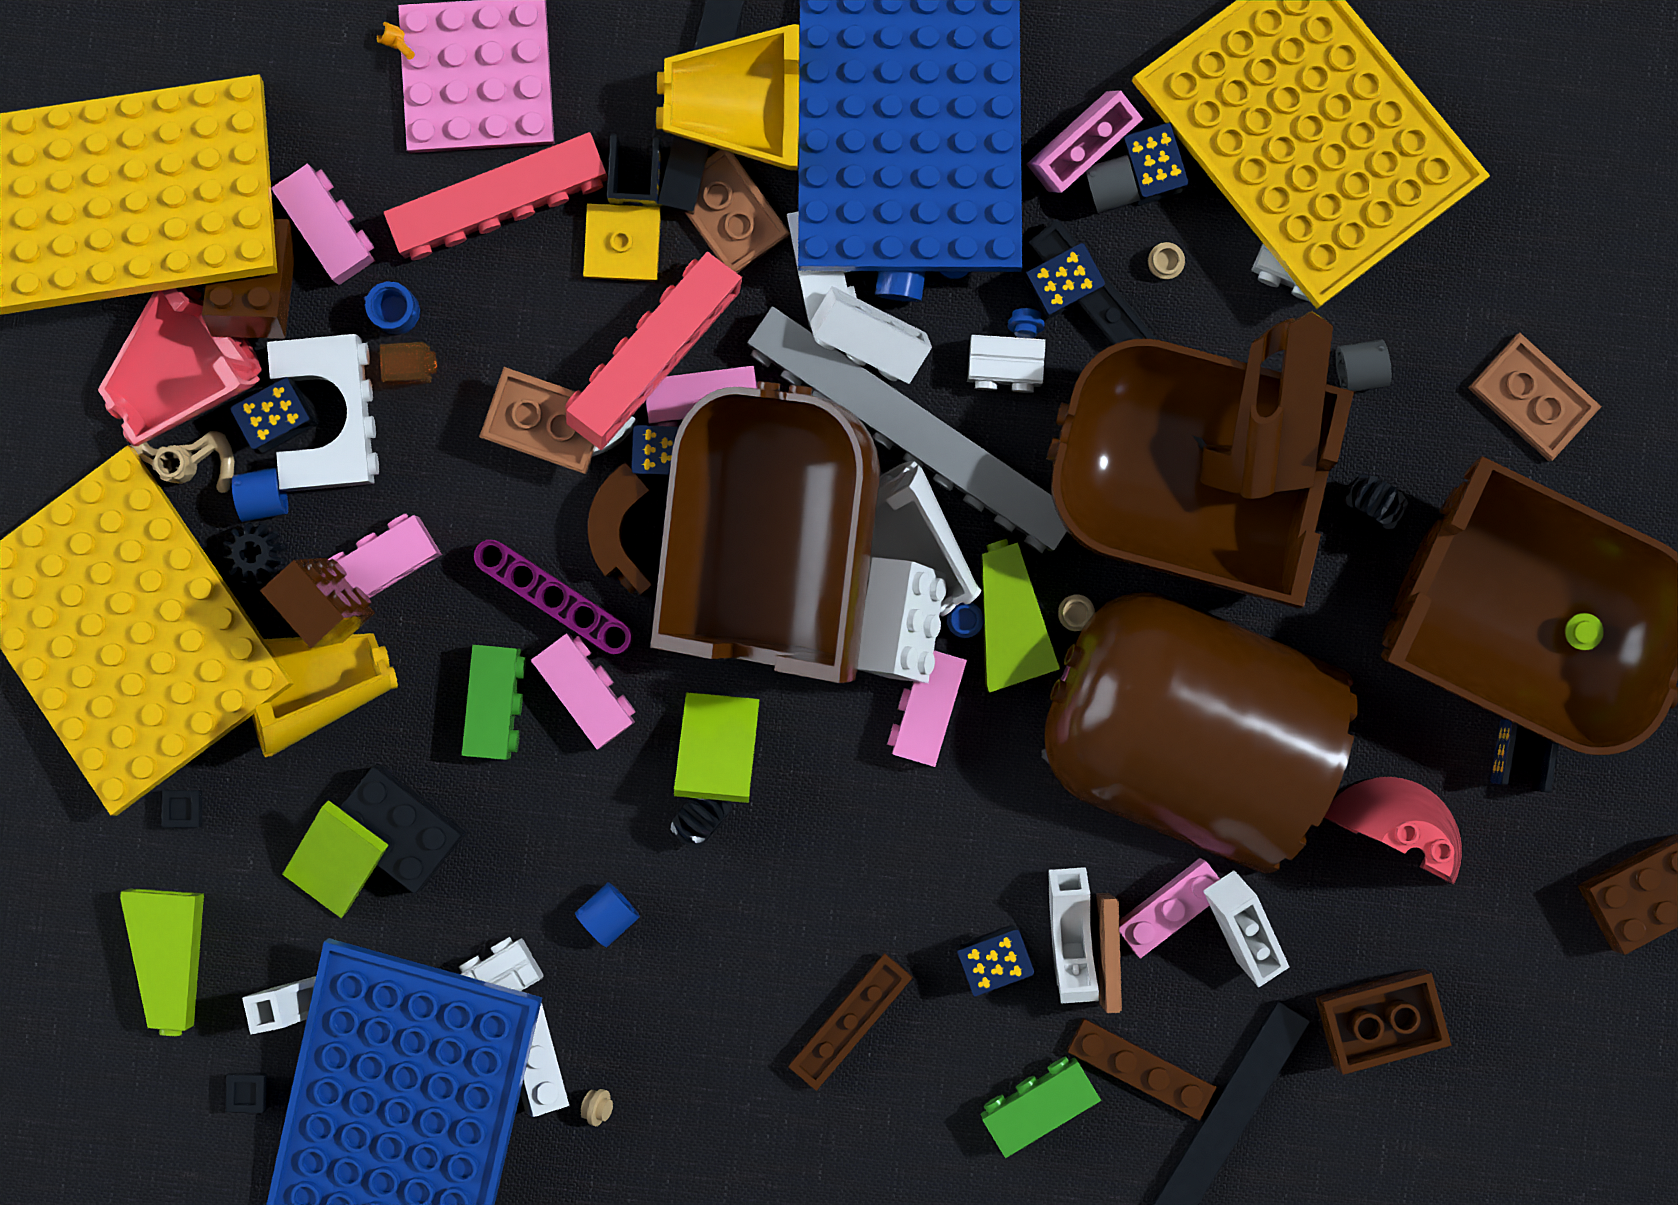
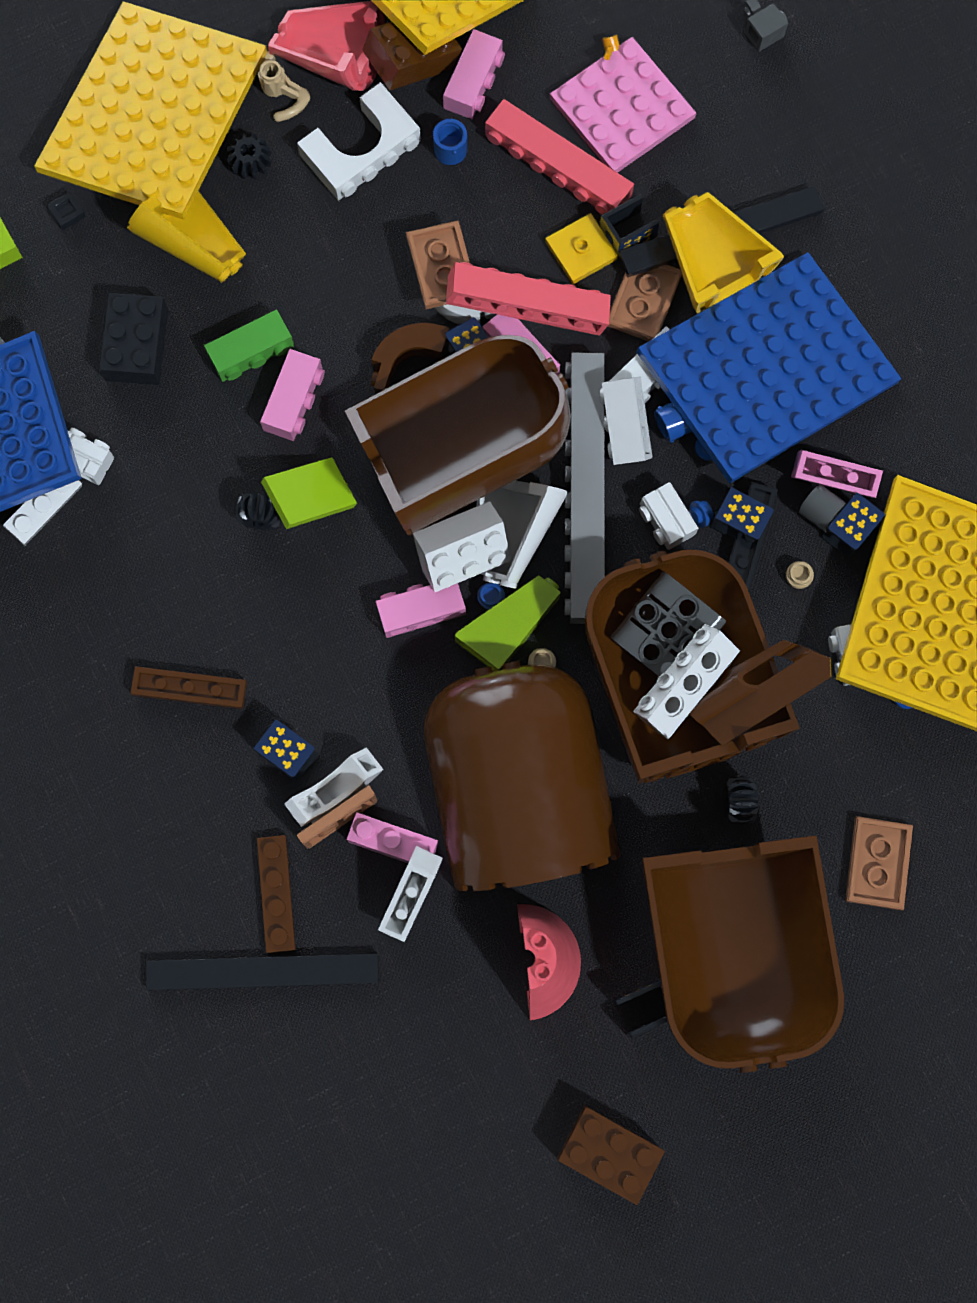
camera: 55 degrees right, 10 degrees down
(258, 495) = (283, 135): blue piece -> none
(274, 415) = (340, 115): dark blue piece -> none
(318, 601) = (241, 194): reddish brown brick -> none
(335, 859) = (91, 311): lime tile -> none
(389, 556) = (291, 229): bright pink brick -> none
(407, 363) = (422, 170): clear orange brick -> none
(536, 591) = (334, 330): magenta beam -> none
(596, 1107) = (34, 566): tan plate -> none
(607, 914) = (160, 495): blue piece -> none
(1039, 1106) = (210, 841): bright green brick -> none
(1124, 488) = (671, 594): none -> dark grey connector
(1218, 477) = (699, 675): none -> white brick
(1363, 365) = (821, 737): dark grey piece -> none
(1383, 1021) = (408, 1028): reddish brown brick -> none
(1584, 631) = (751, 992): lime plate -> none

